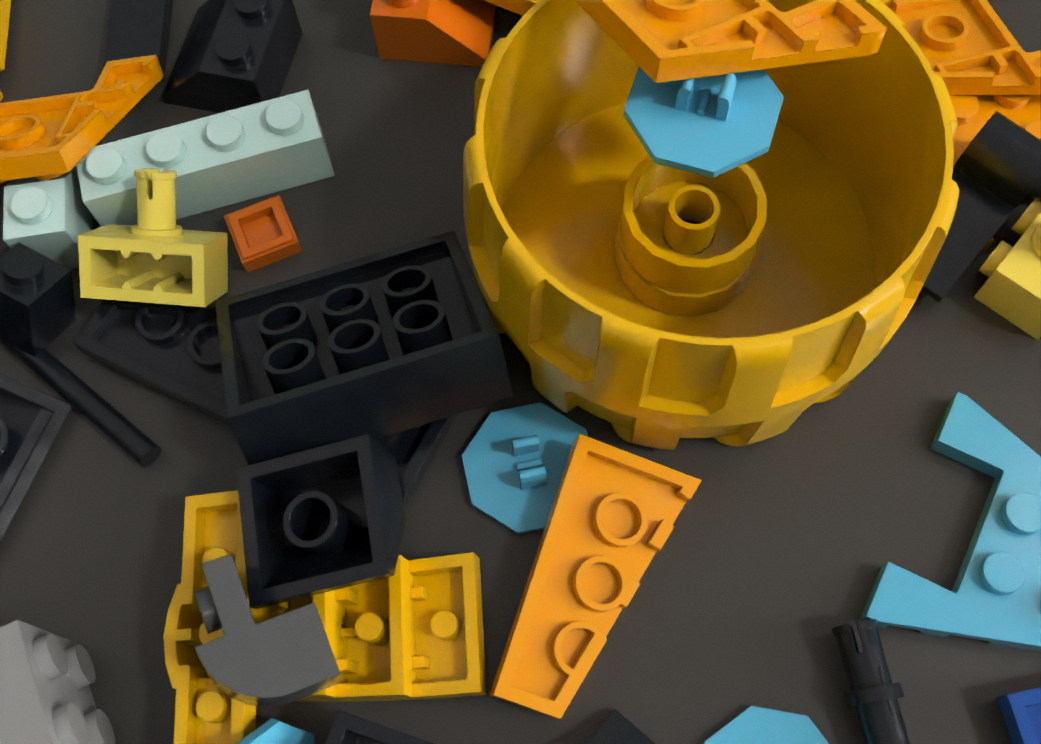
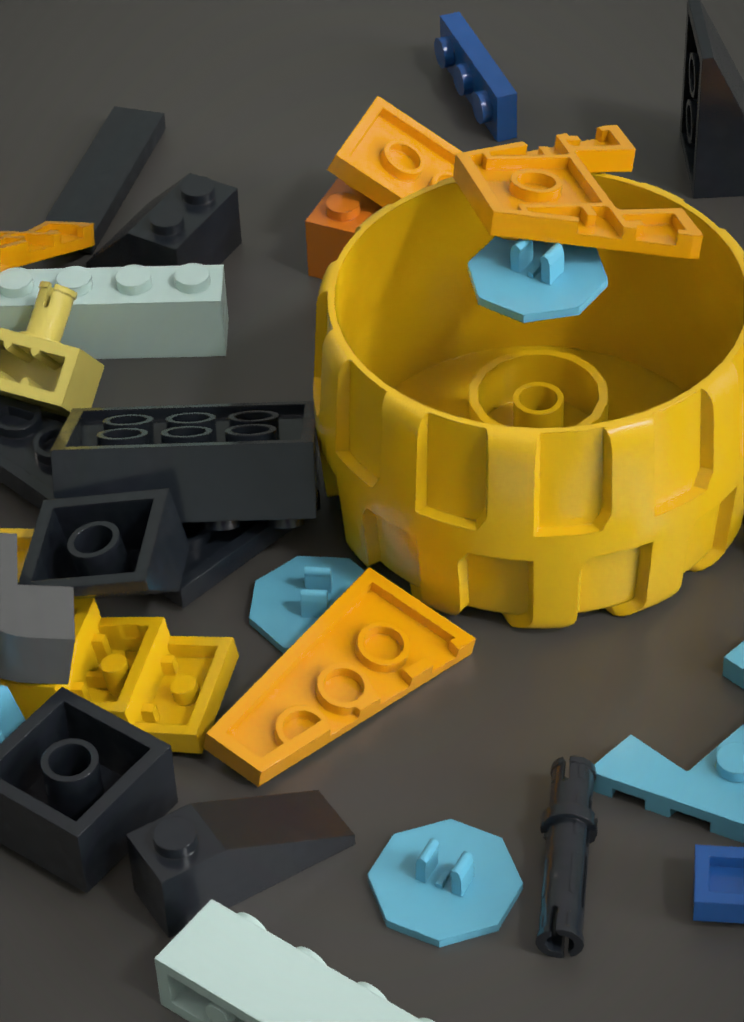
camera: 15 degrees right, 25 degrees down
(263, 233) = (138, 380): orange tile -> none

